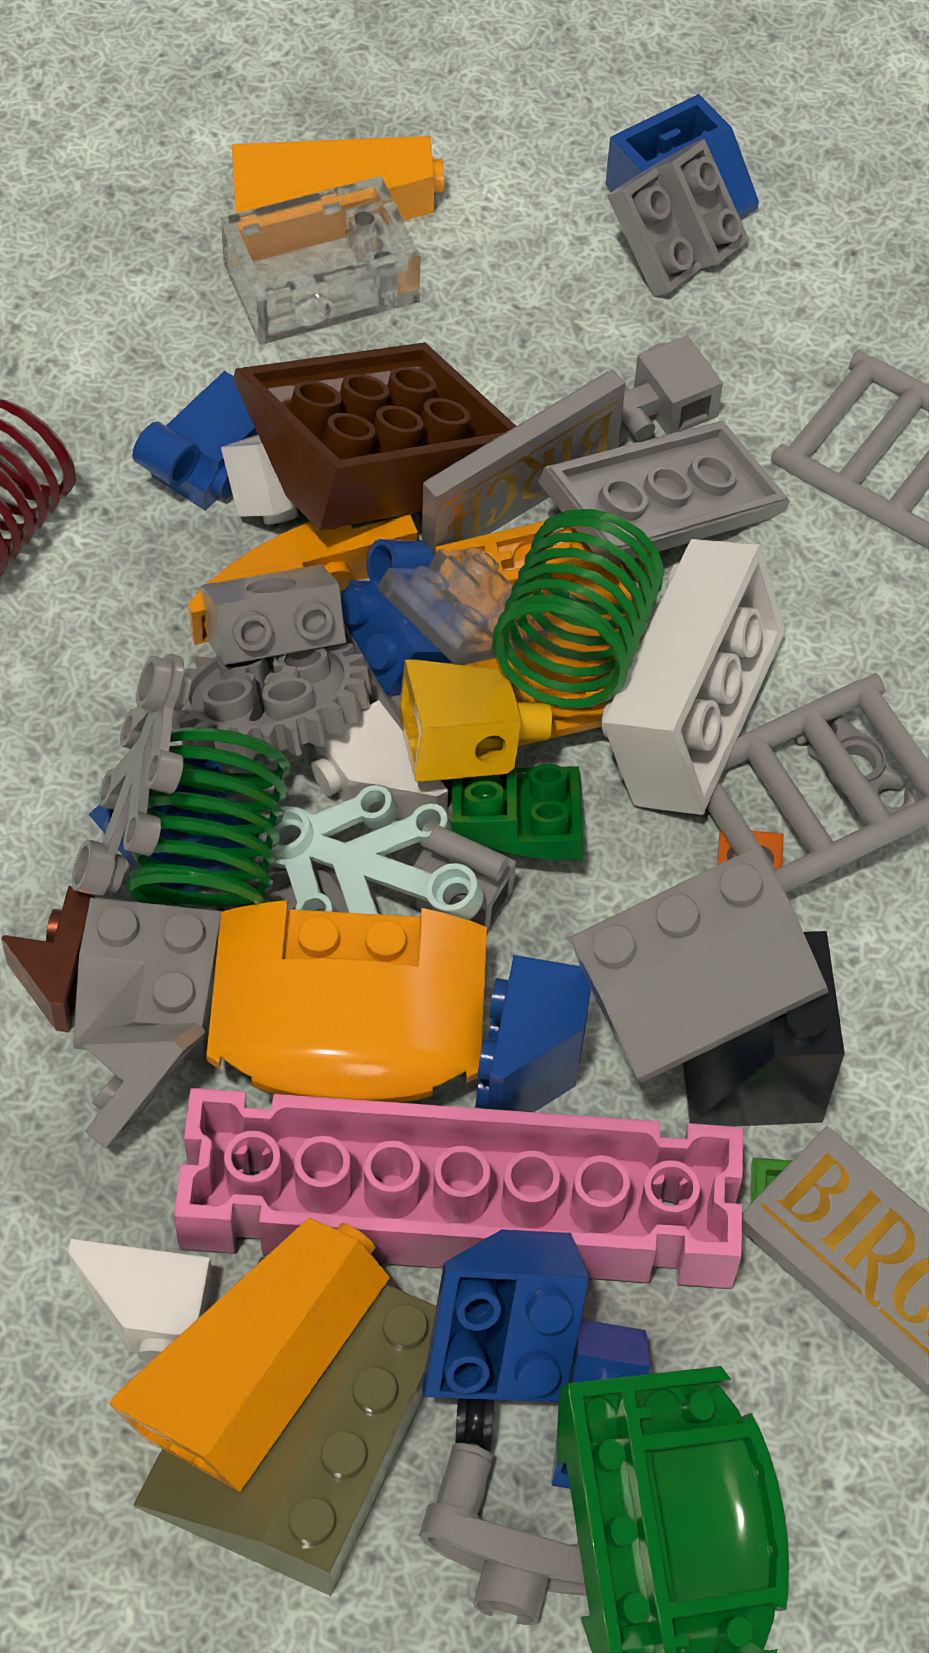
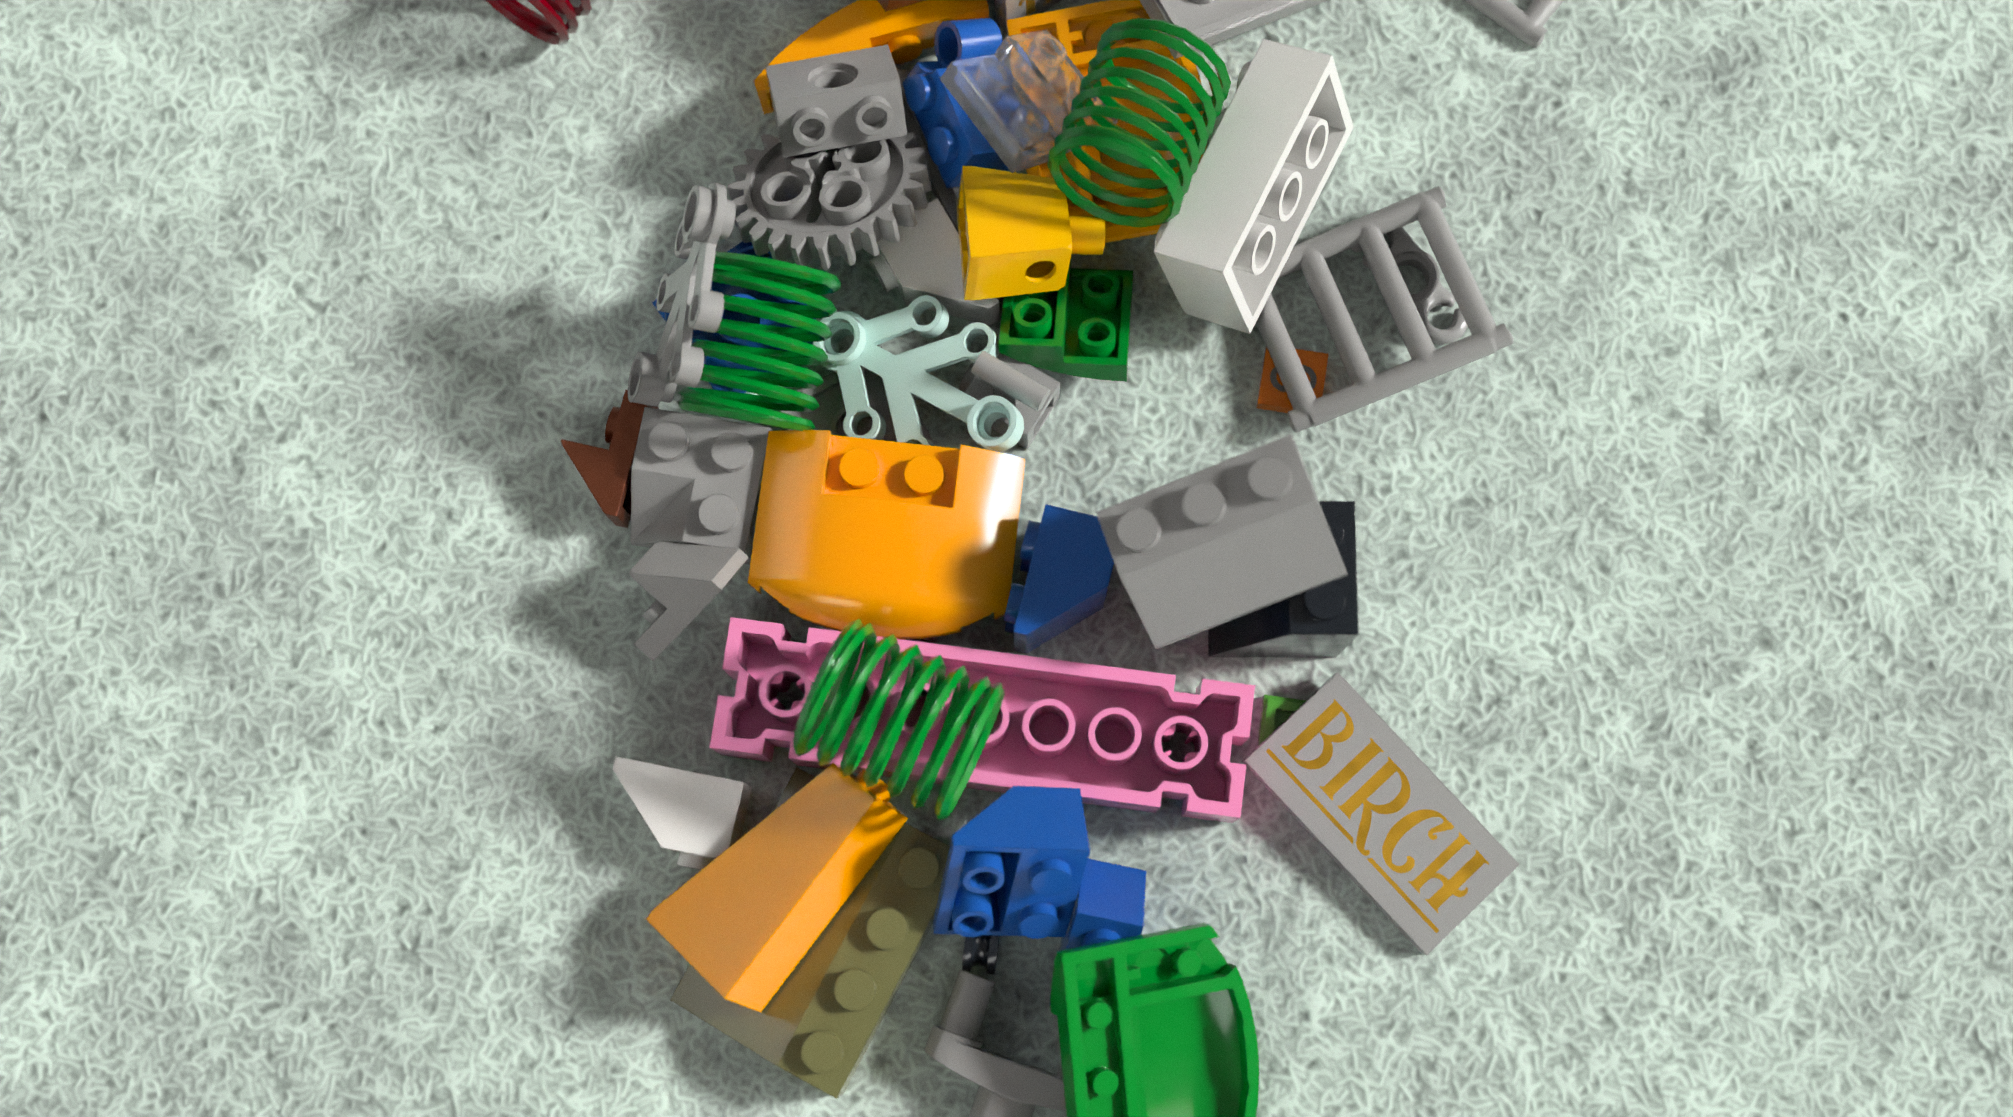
camera: 10 degrees right, 20 degrees up
(310, 1171) = (847, 693): none -> green piece

